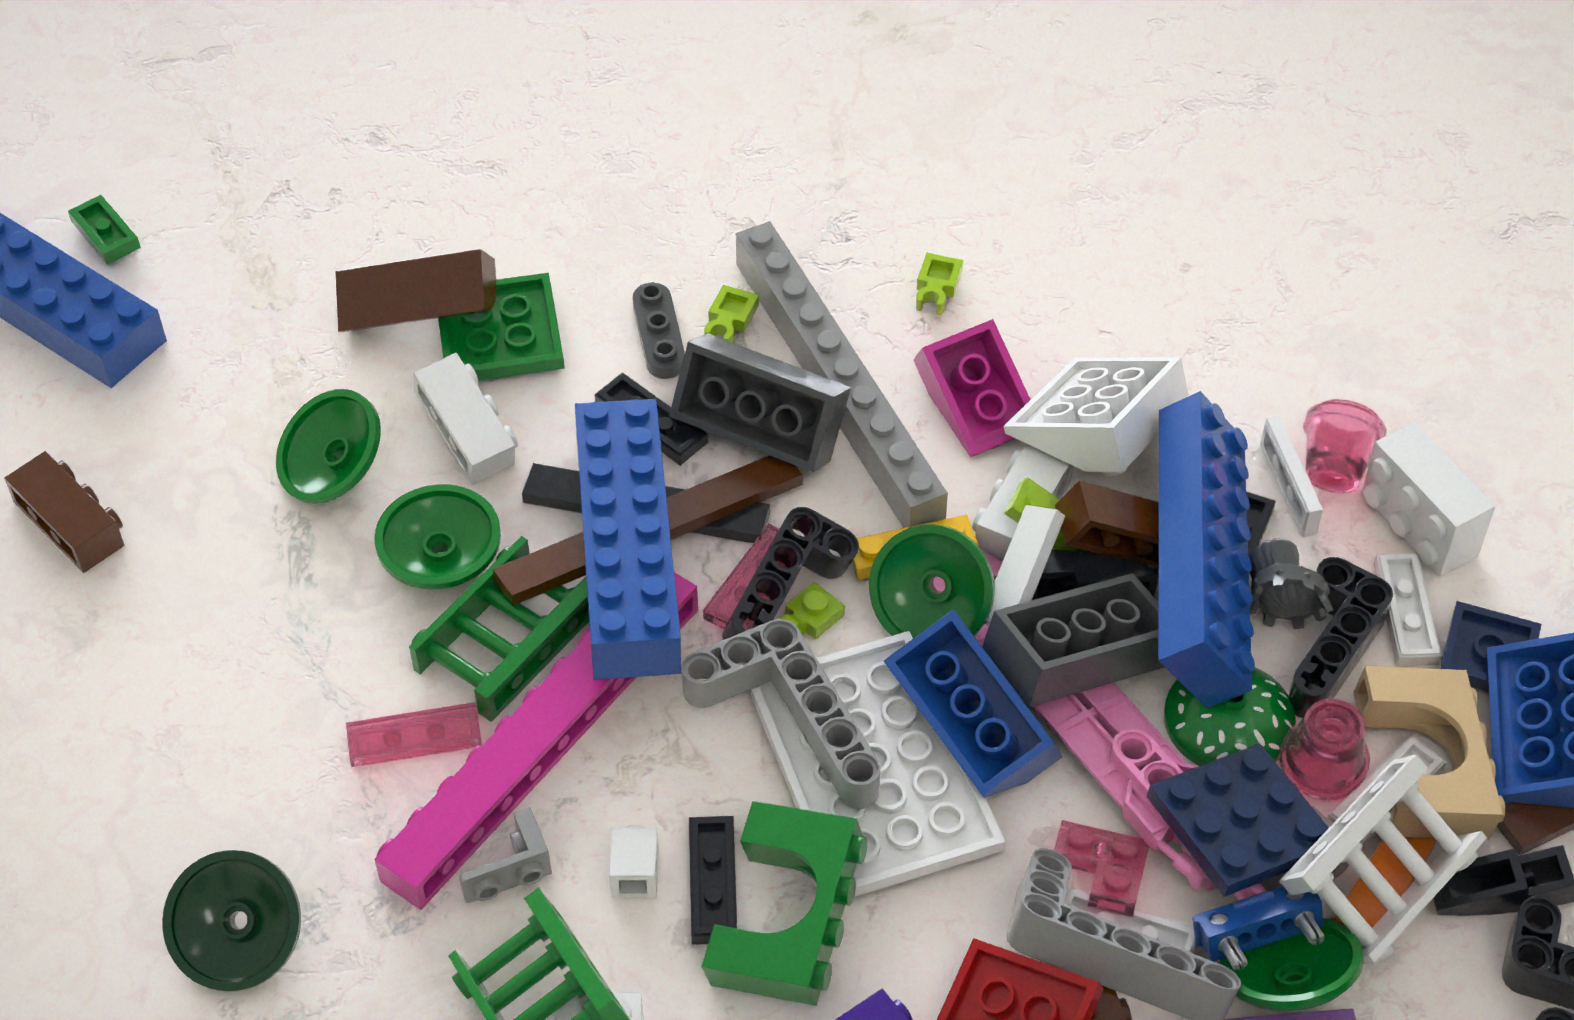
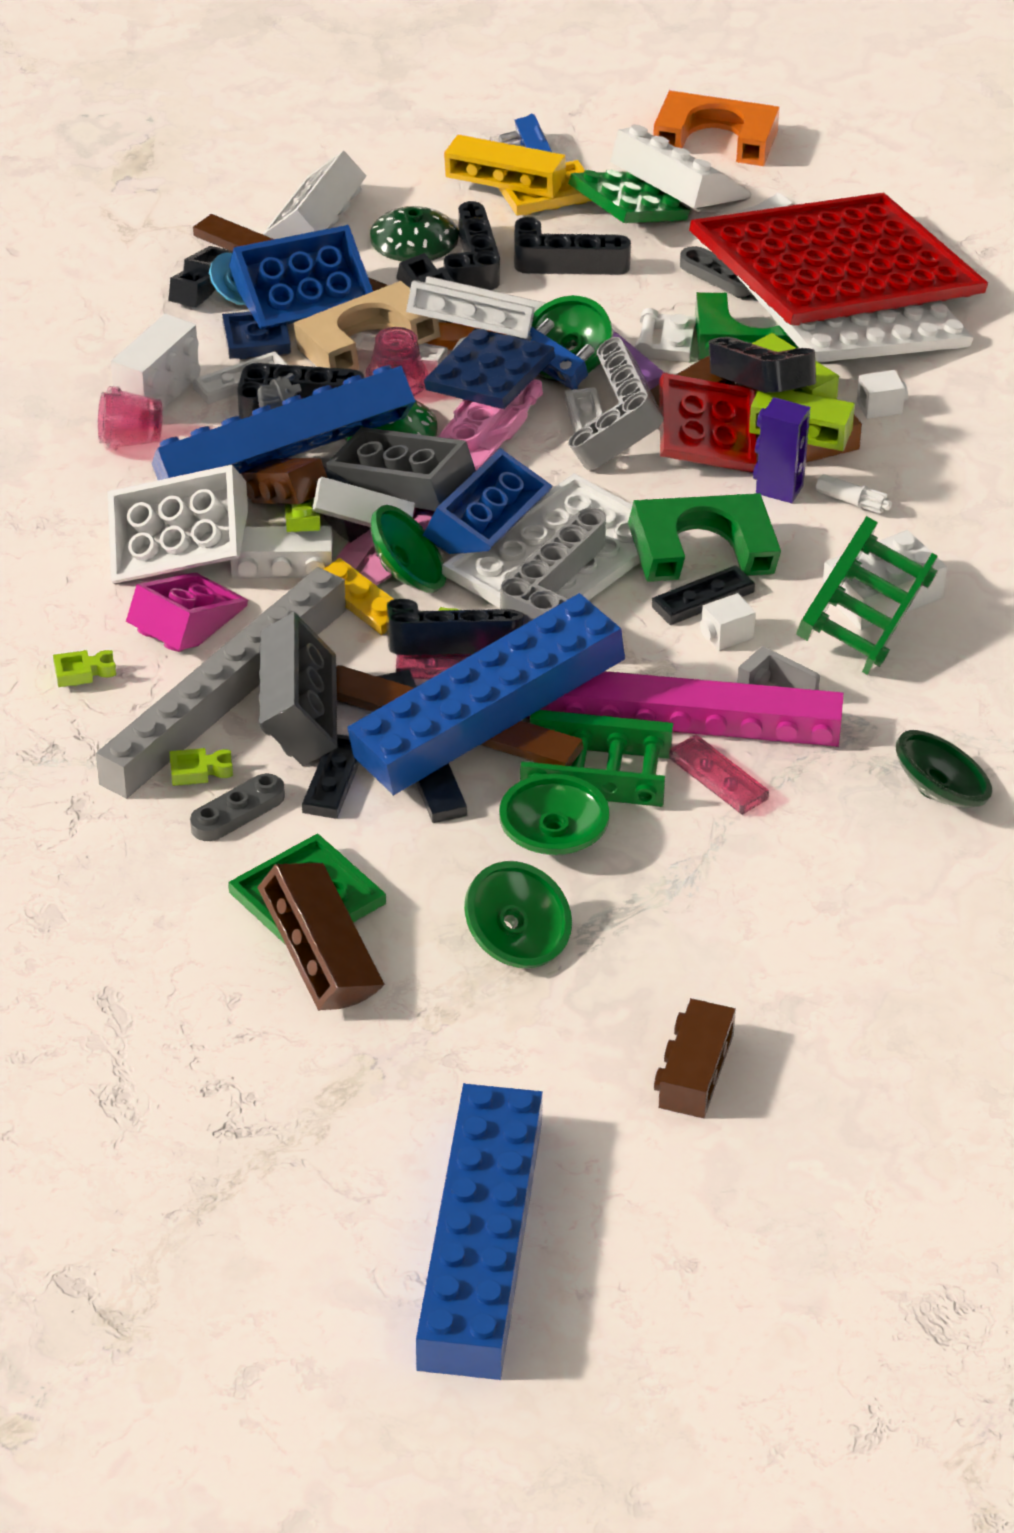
camera: 120 degrees left, 10 degrees down
(104, 229) = (374, 1215): green plate -> none
(465, 417) = (426, 854): white brick -> none
(1112, 857) = (546, 433): clear pink plate -> none
(1291, 476) = (140, 453): white tile -> none

